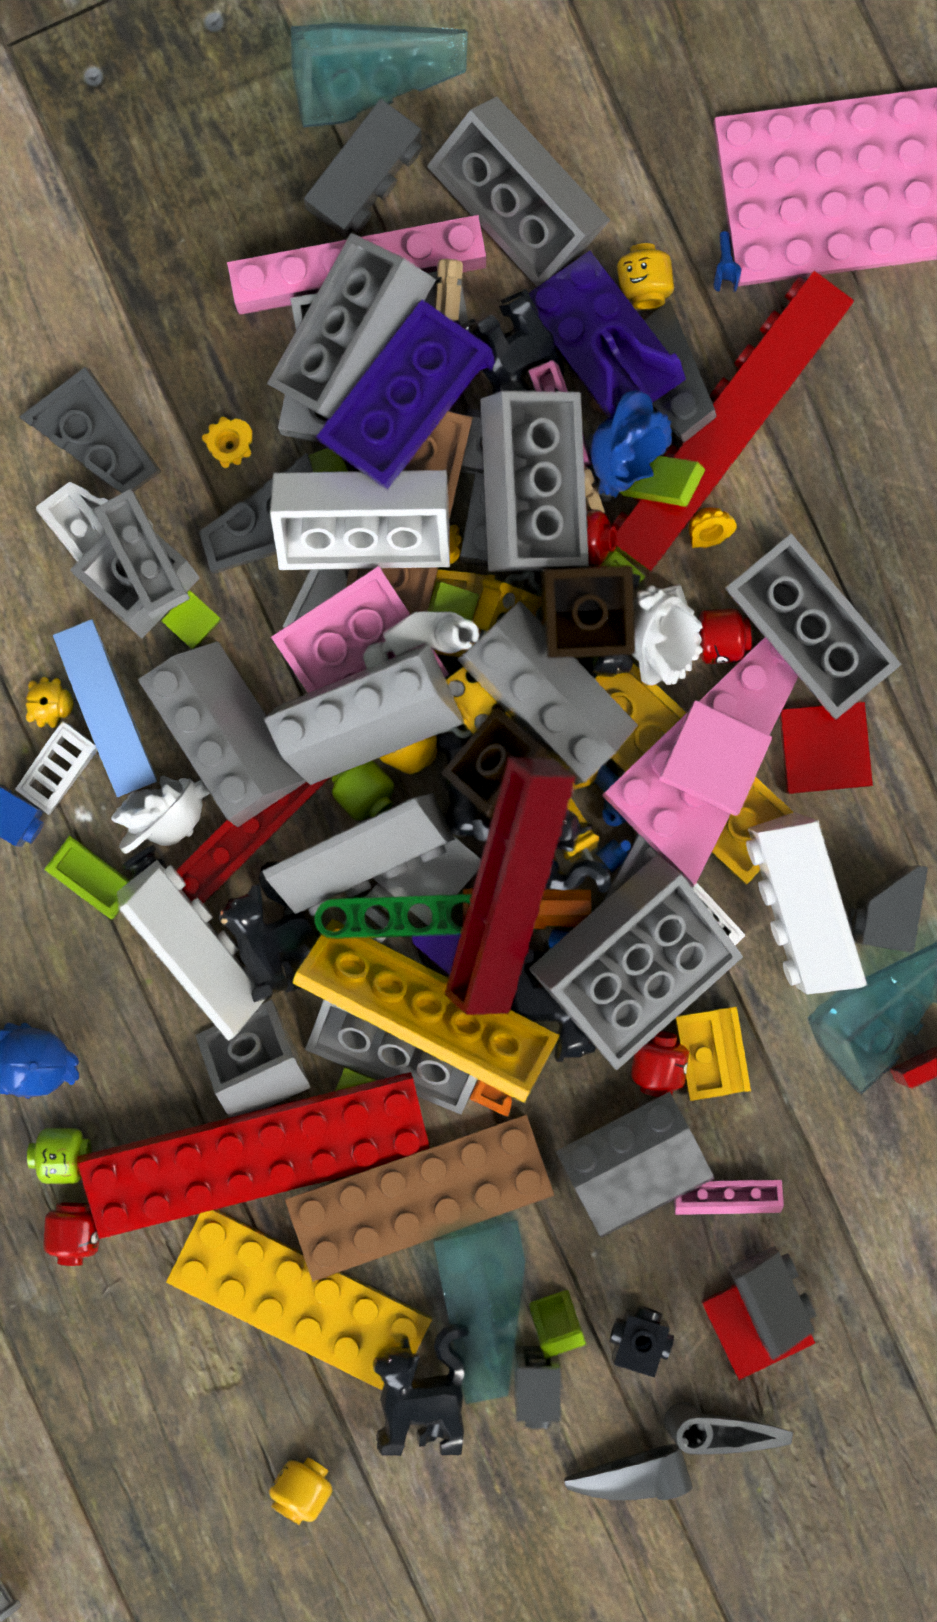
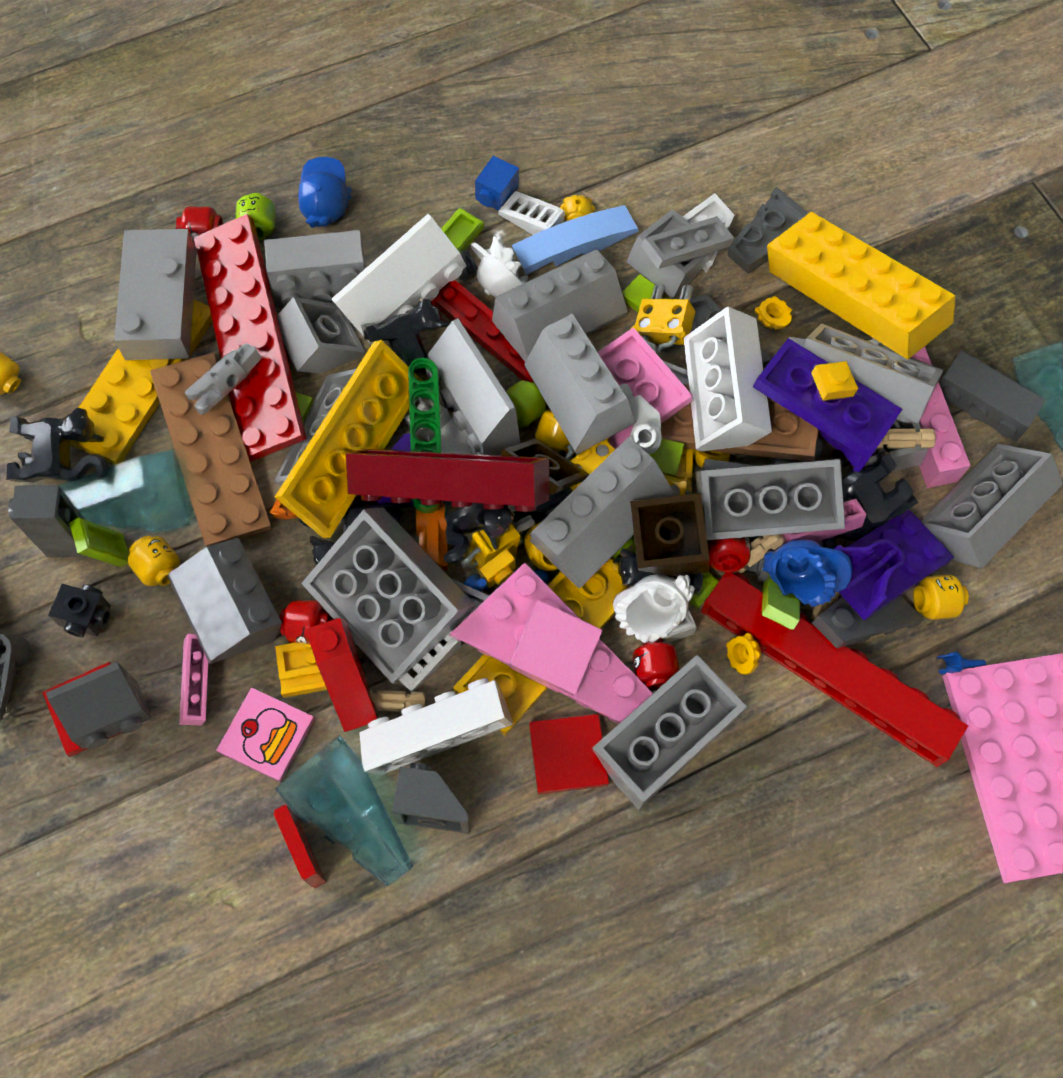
camera: 85 degrees right, 20 degrees down
(159, 1064) = (313, 265): none -> light grey brick
(197, 1281) = (155, 294): none -> light grey brick
(210, 326) = (861, 285): none -> yellow brick
(244, 592) = (665, 319): none -> yellow piece
(333, 1180) = (223, 377): none -> light grey hinge
(387, 384) = (834, 380): none -> yellow plate
(576, 1257) = (152, 560): none -> yellow head
(604, 824) = (498, 569): none -> yellow plate
(732, 1016) = (342, 673): none -> red slope
(757, 959) = (396, 700): none -> tan axle
(794, 1108) = (266, 734): none -> bright pink tile

